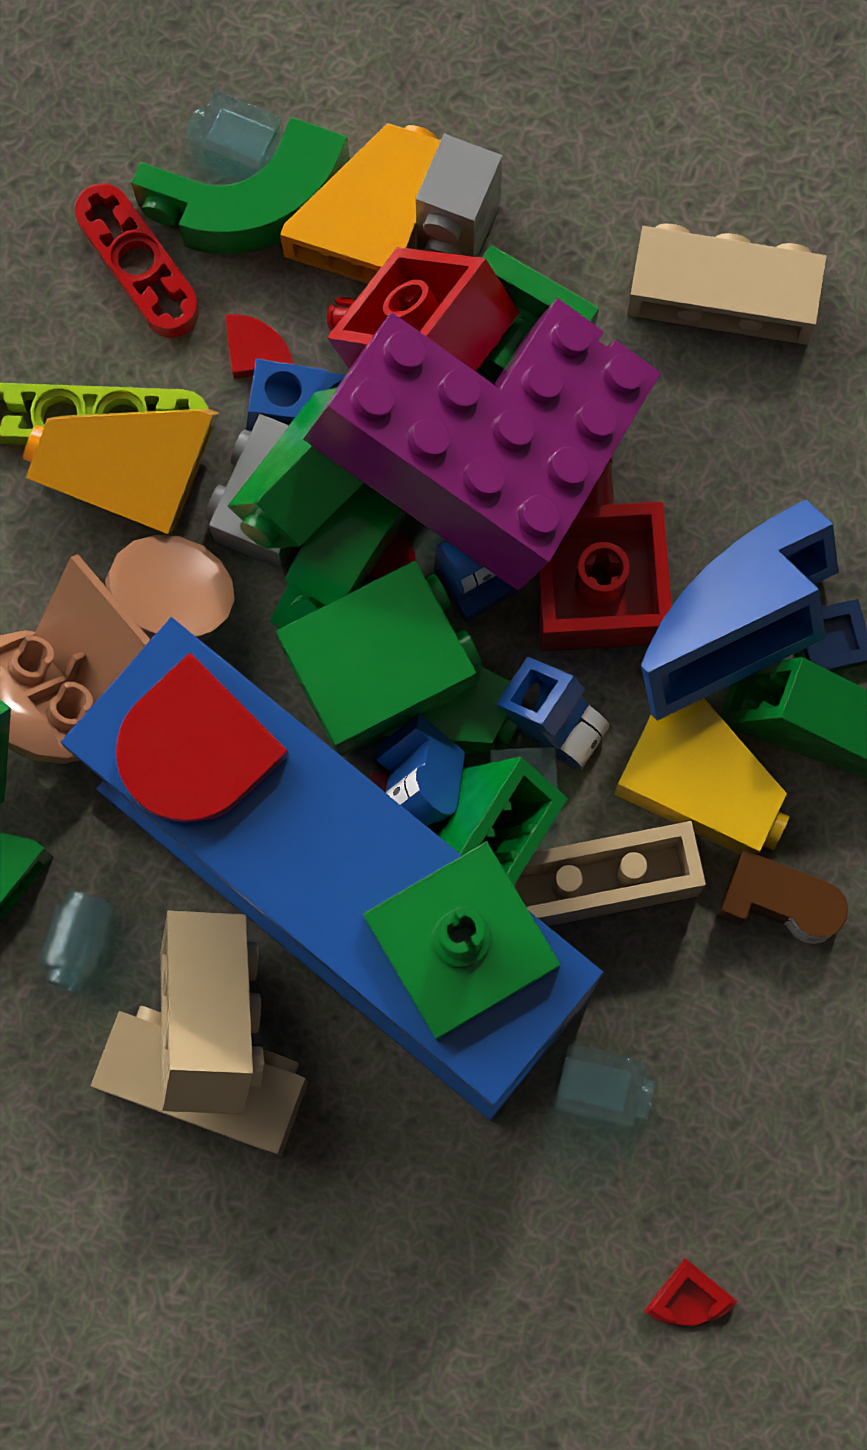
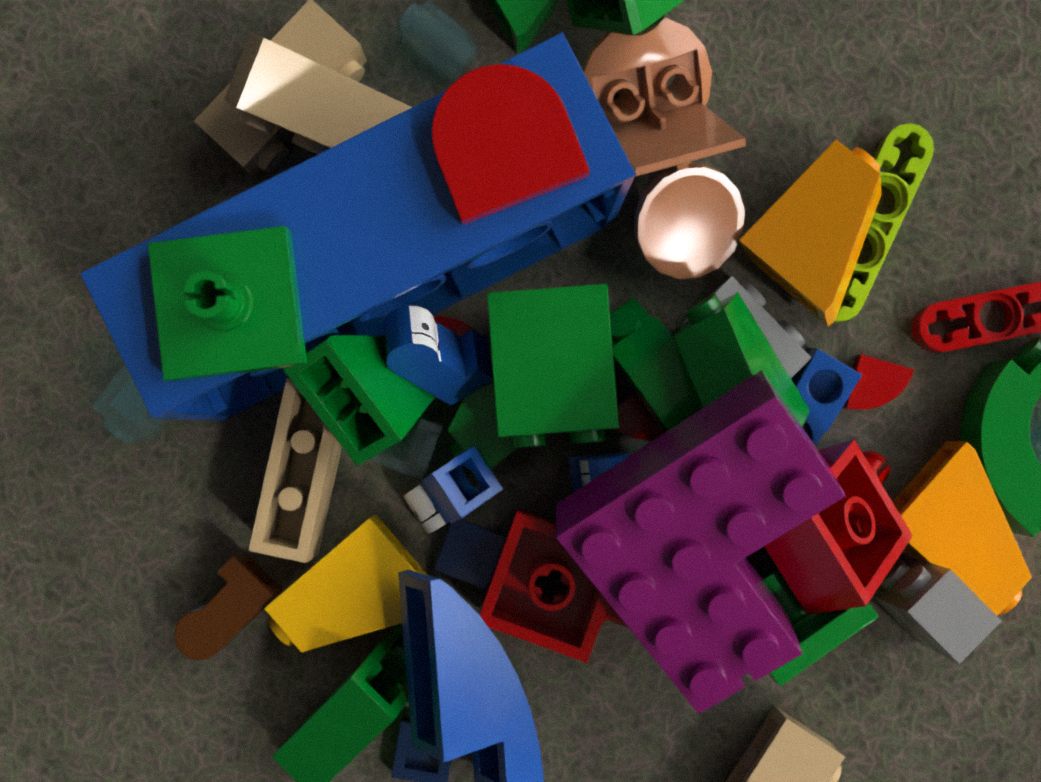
camera: 105 degrees right, 10 degrees up
(611, 676) = (470, 553): none -> dark blue tile

